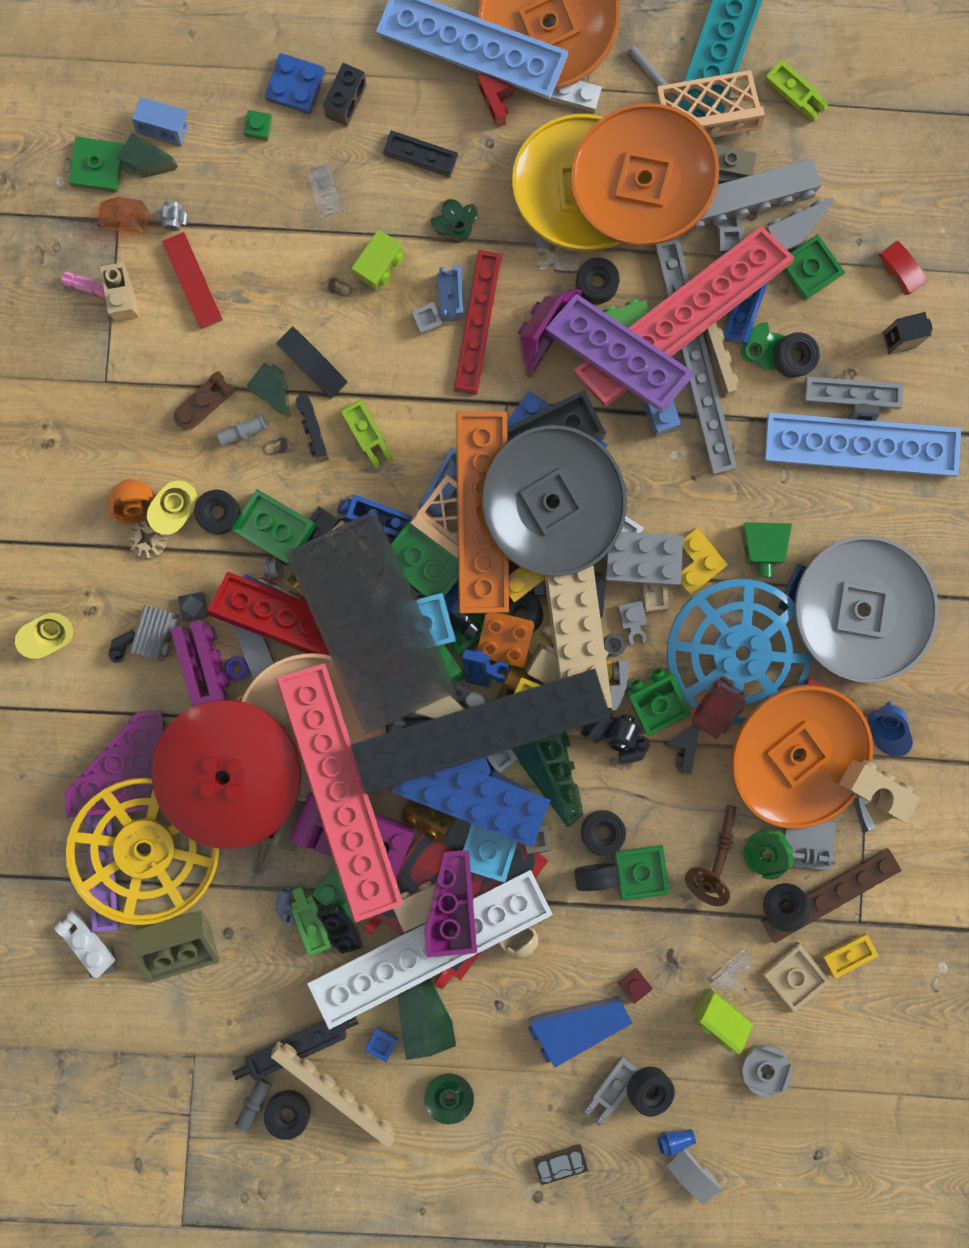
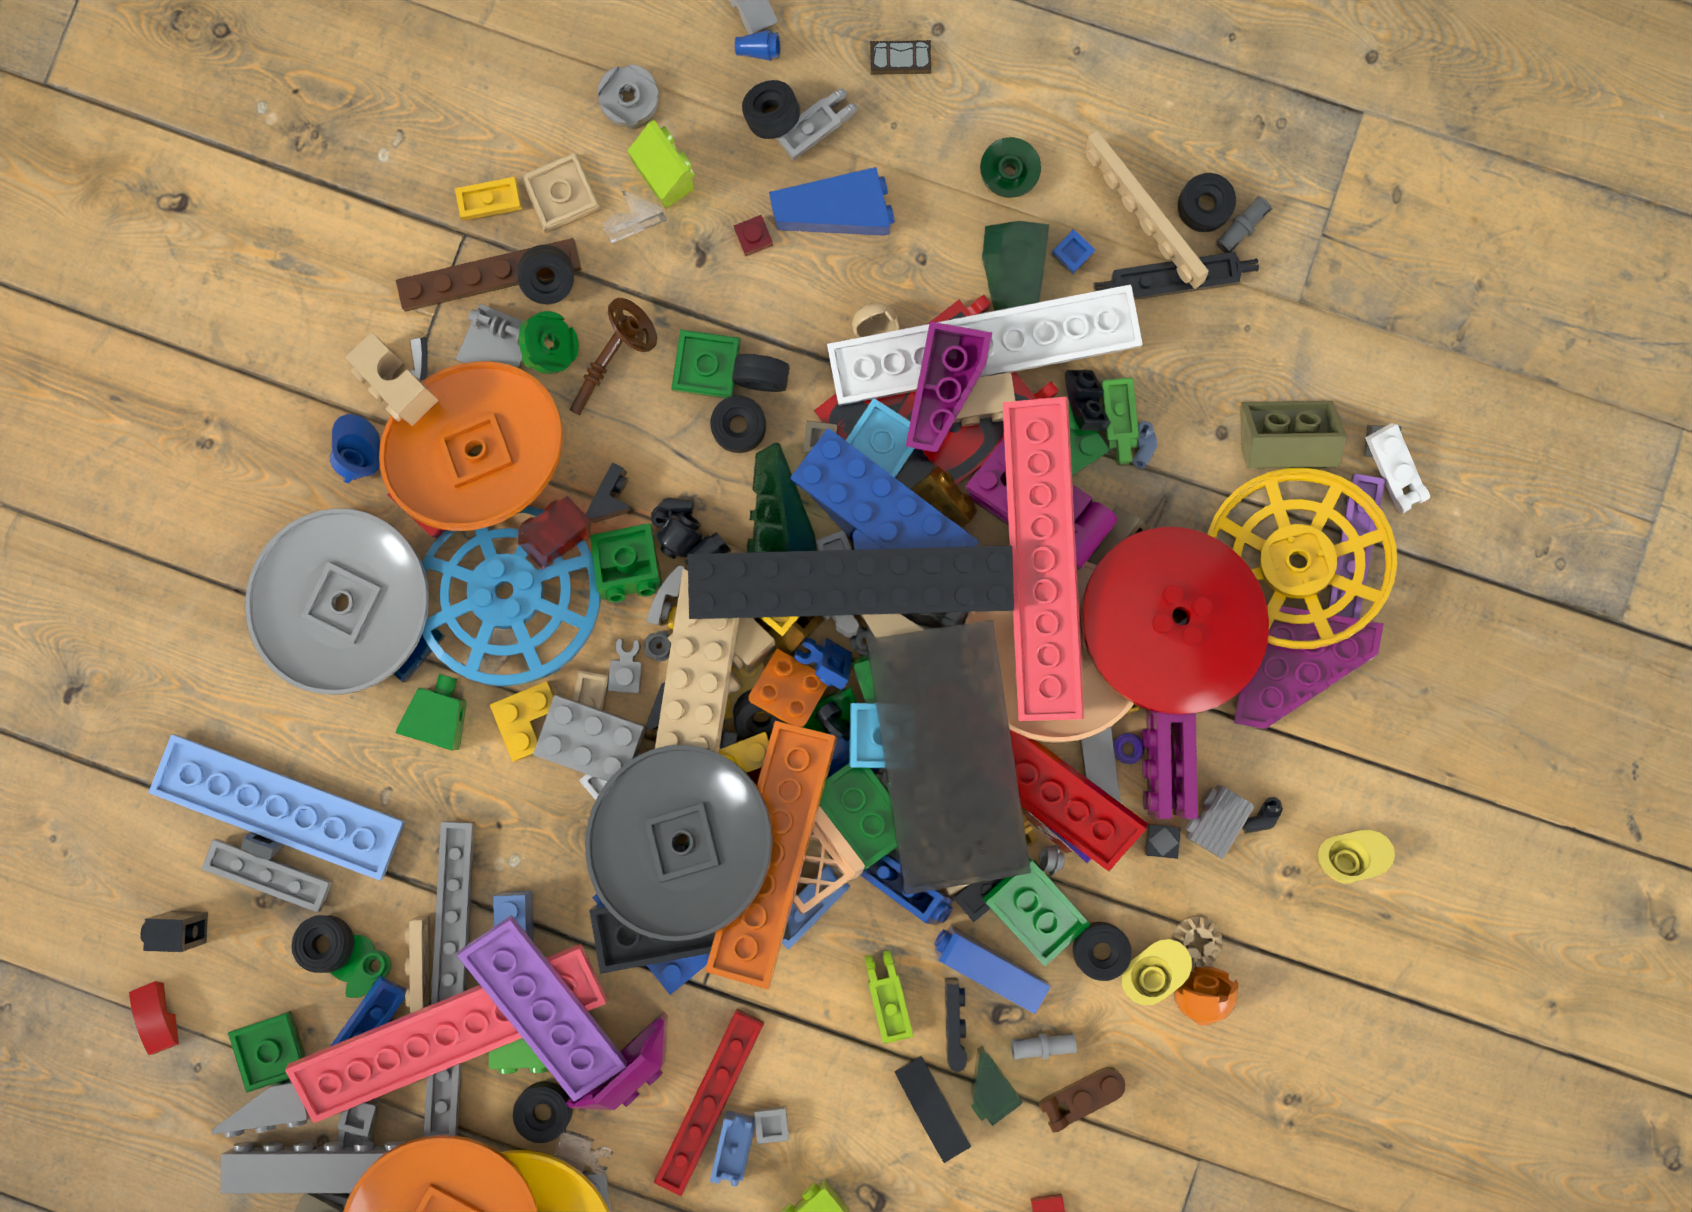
camera: 160 degrees left, 0 degrees up
(296, 475) = (990, 968): none -> slope

